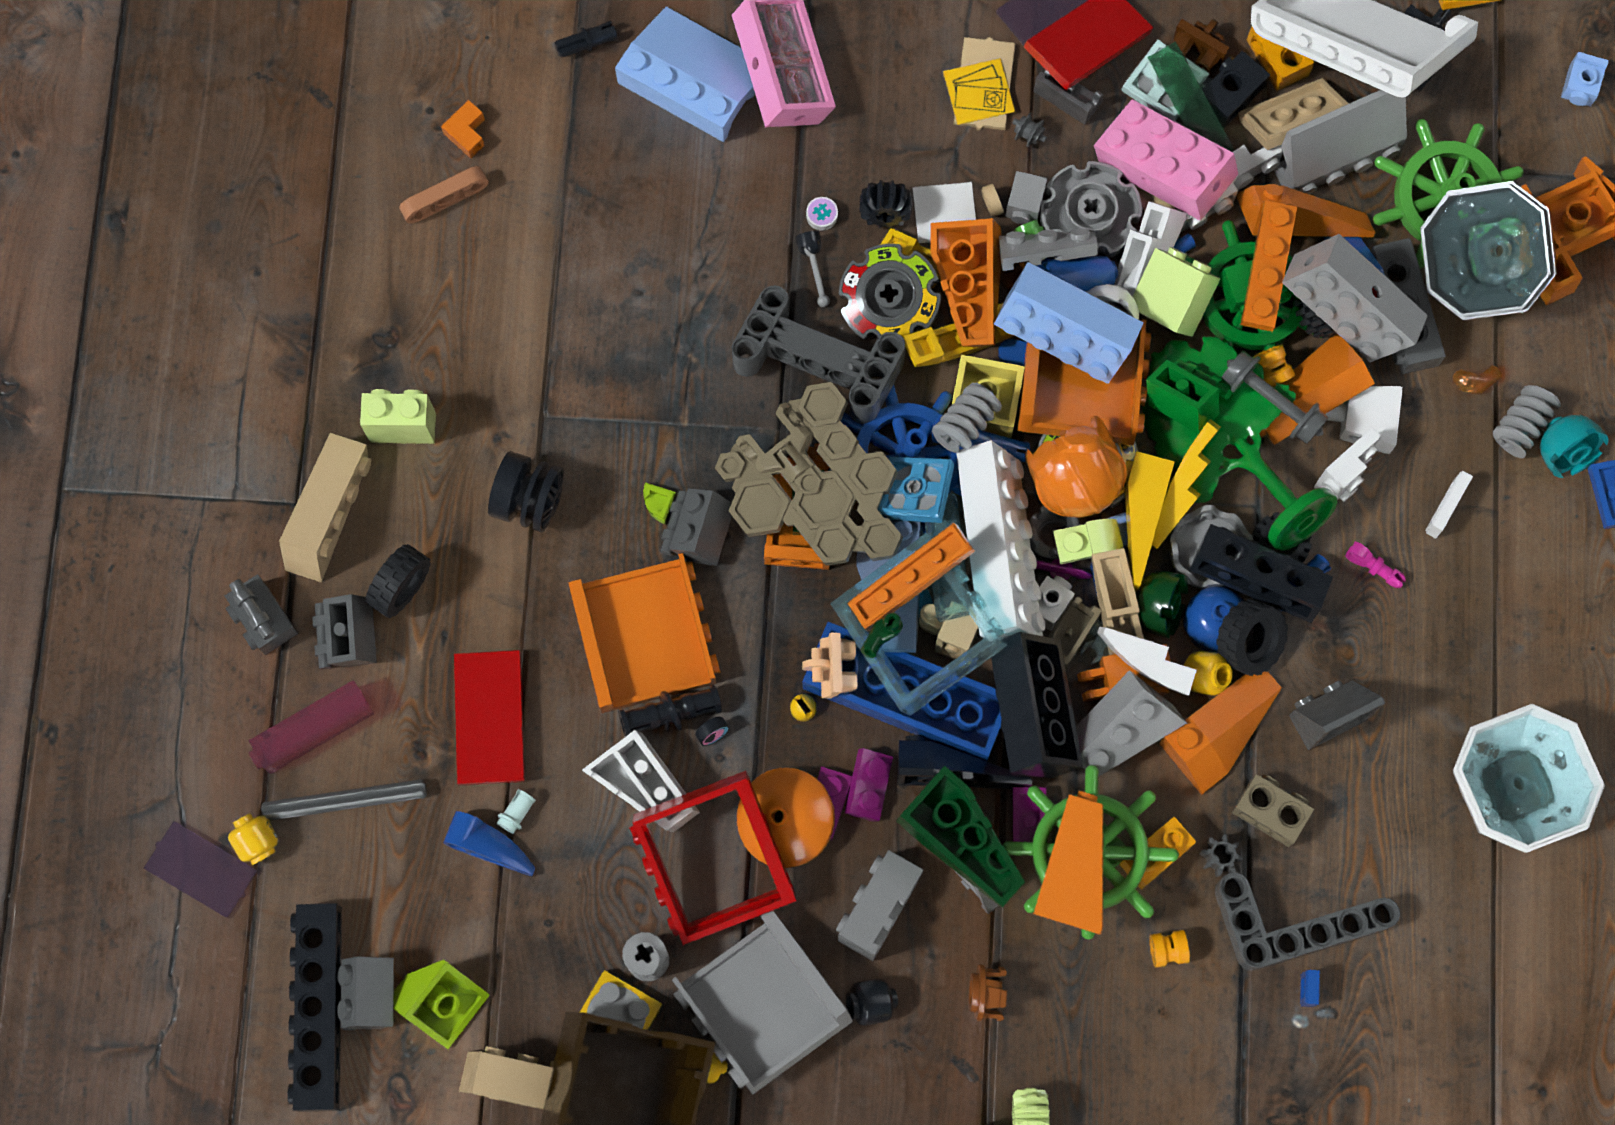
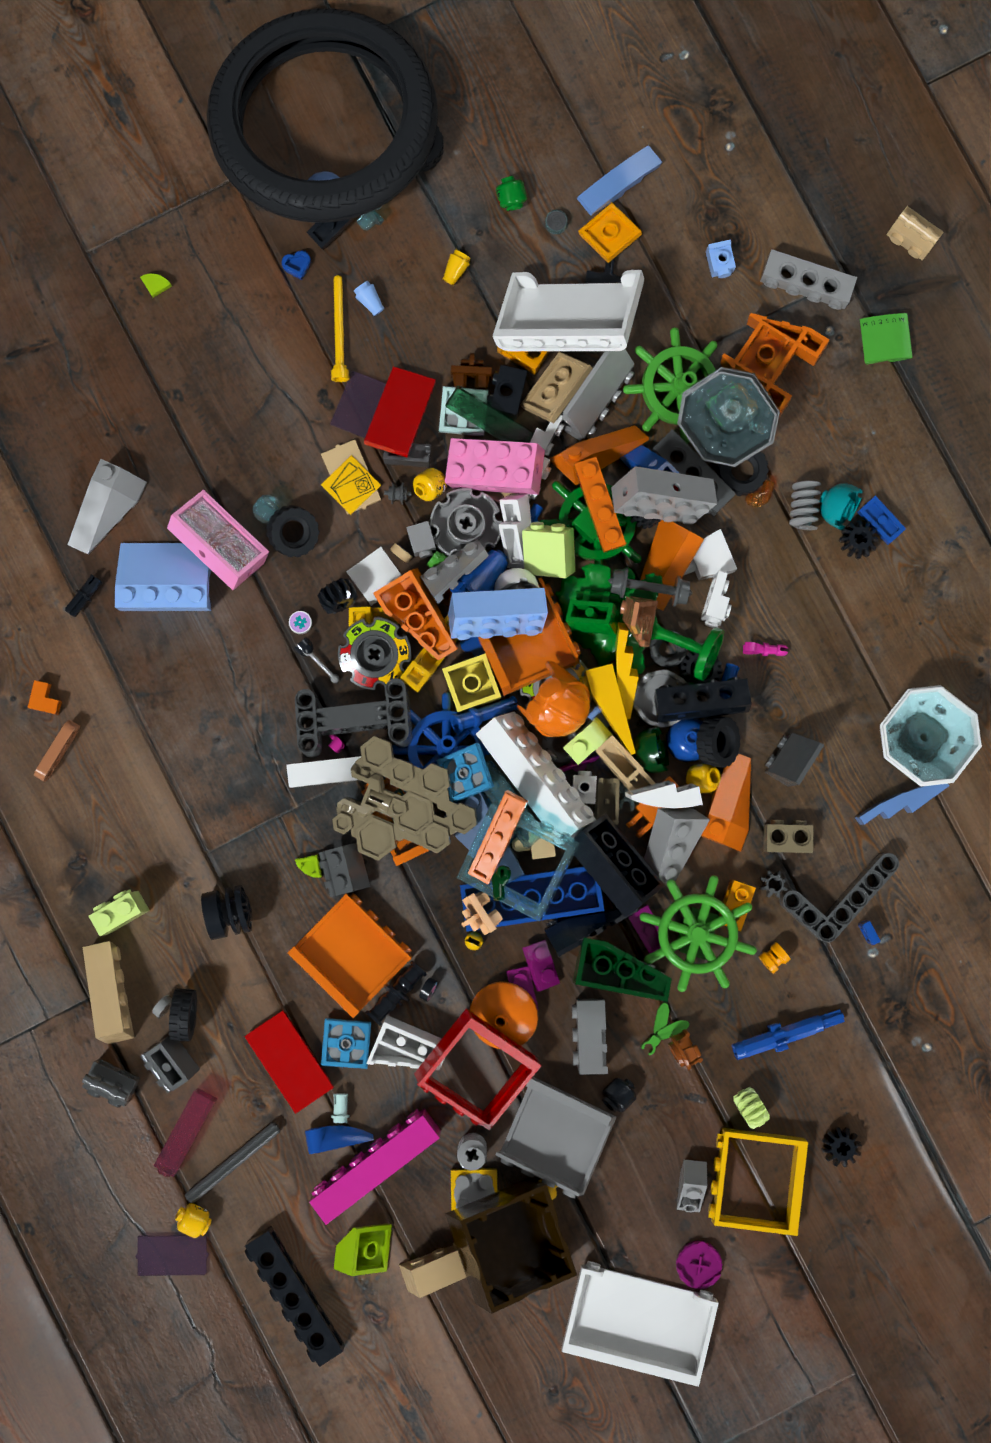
camera: 35 degrees left, 10 degrees up
(366, 993) = (319, 1273): dark grey brick -> none
(375, 559) = (162, 1006): none -> light grey tile
(516, 901) = (374, 1166): none -> dark pink brick
(571, 736) = (346, 1043): none -> dark azure piece
(741, 397) = (320, 772): none -> white slope
(778, 377) = (337, 744): none -> dark pink hand
(862, 61) = (265, 507): none -> clear light blue piece
(894, 118) = (276, 524): none -> black tyre
(966, 417) = (470, 710): light grey piece -> none
(973, 954) = (662, 1031): none -> bright green piece
(1074, 140) = (429, 484): none -> yellow head
(1075, 872) = (700, 960): orange slope -> none
(1119, 1051) = (779, 1036): none -> blue piece
(1235, 488) = (676, 659): none -> dark grey piece
(1242, 423) = (639, 618): none -> nougat wedge
(1275, 366) = (637, 563): light orange wheel -> none
(1448, 504) = (787, 585): white tile -> none
(1456, 852) = (909, 800): none -> medium blue slope
(1475, 361) = (751, 485): none -> black tyre
(1570, 488) = (858, 530): none -> black gear

